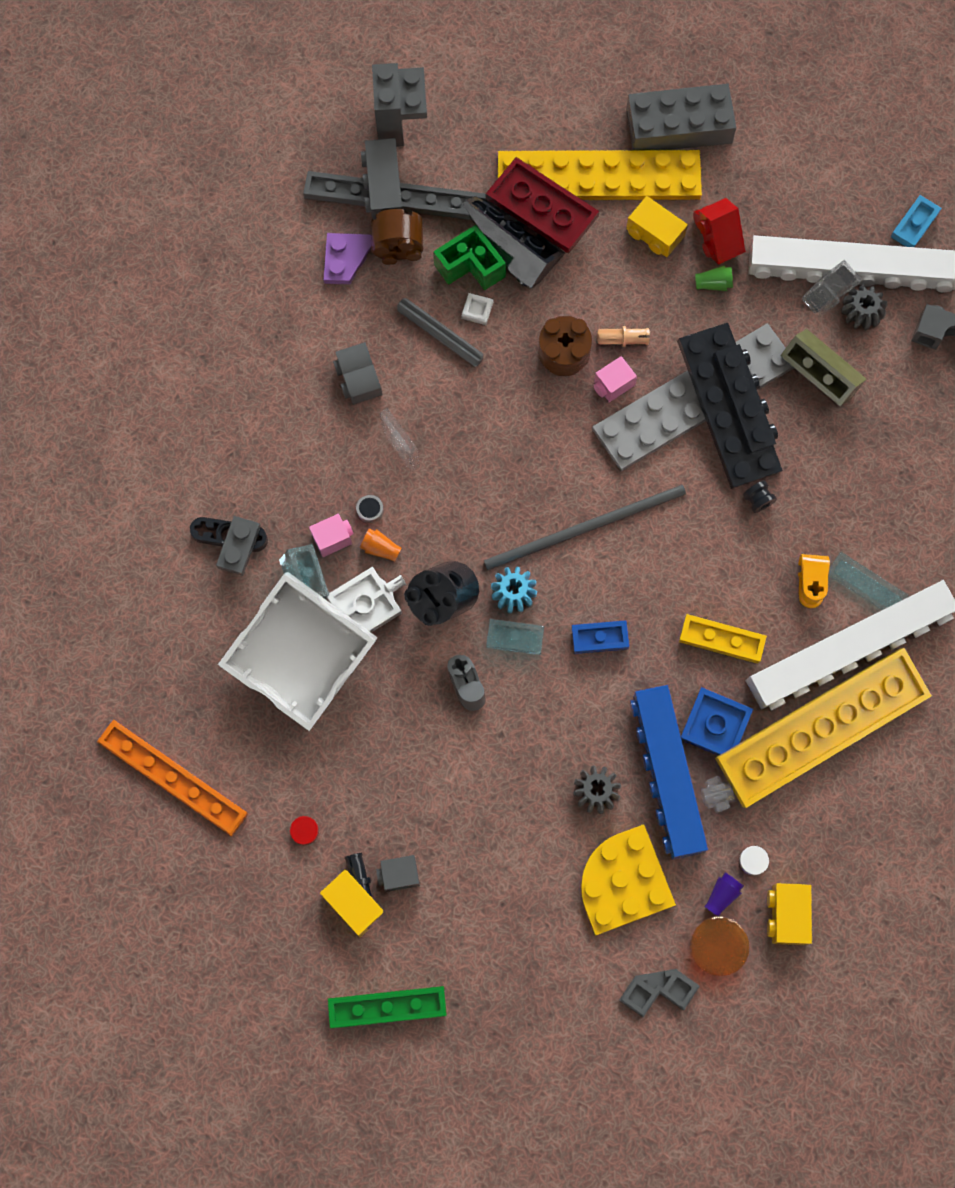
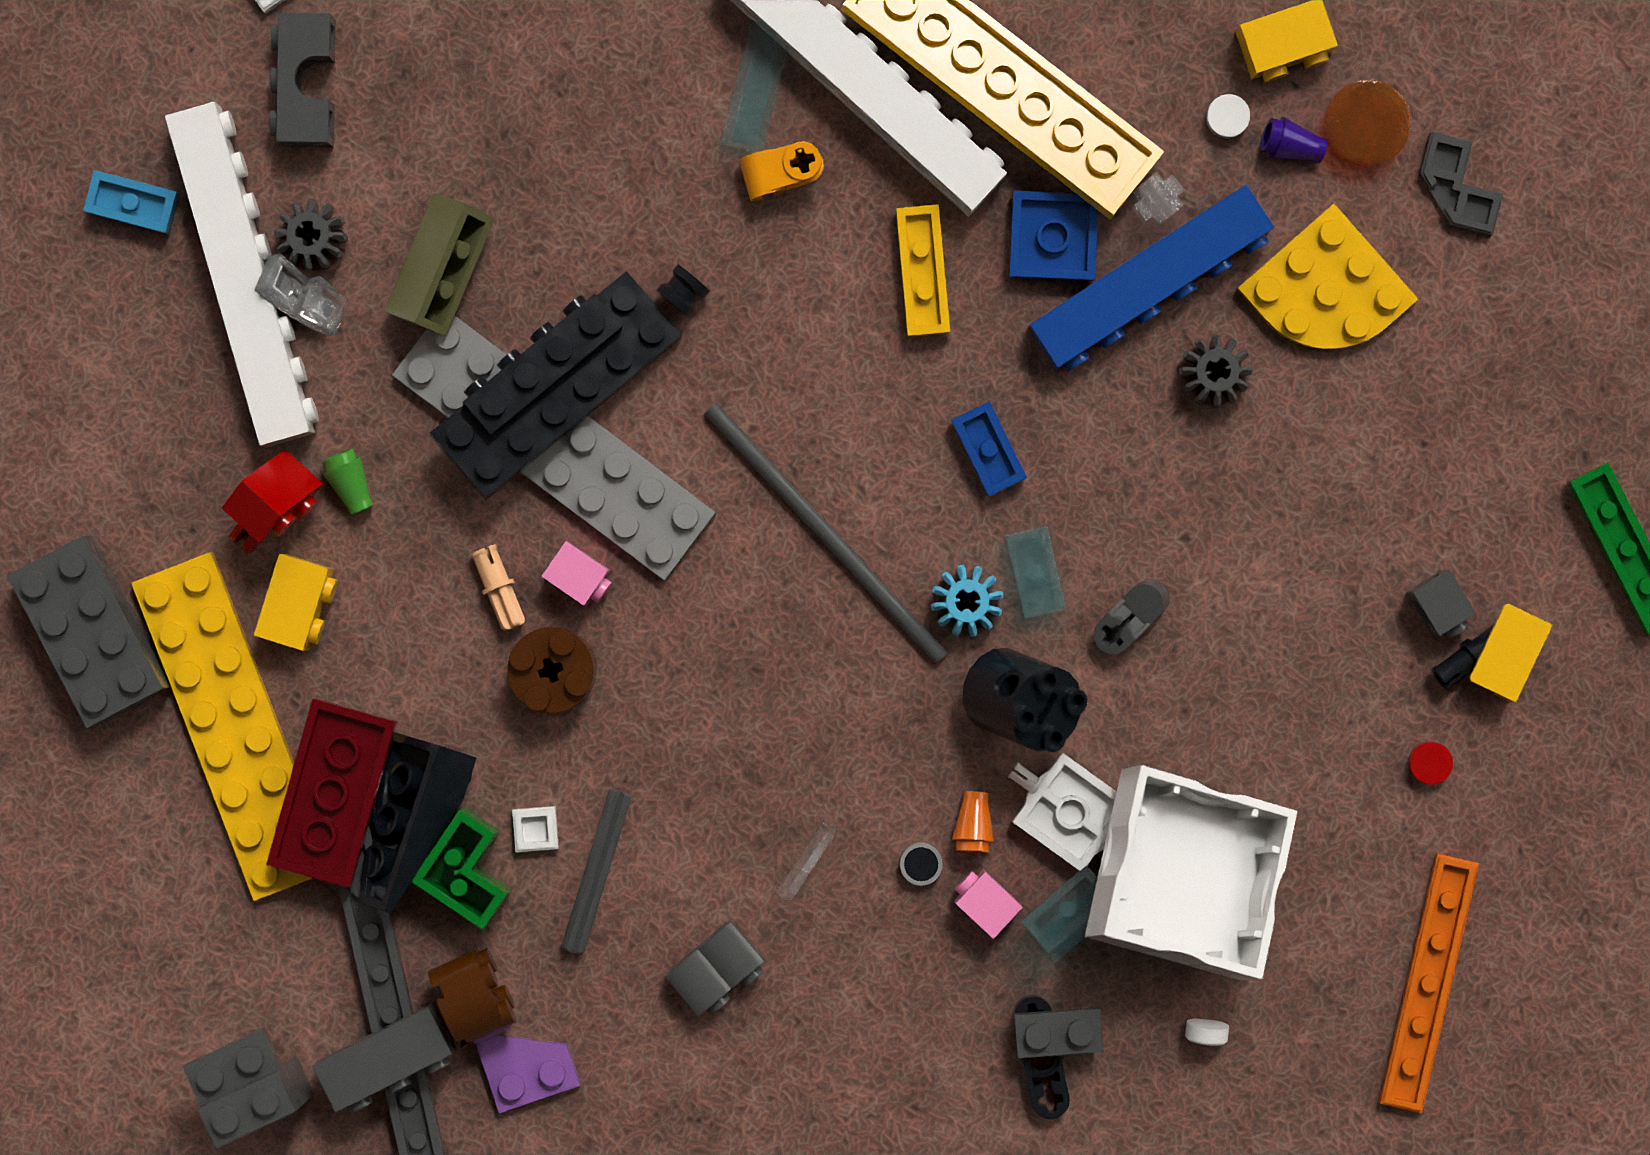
camera: 115 degrees left, 15 degrees up
(201, 632) = (1207, 1032): none -> white tile

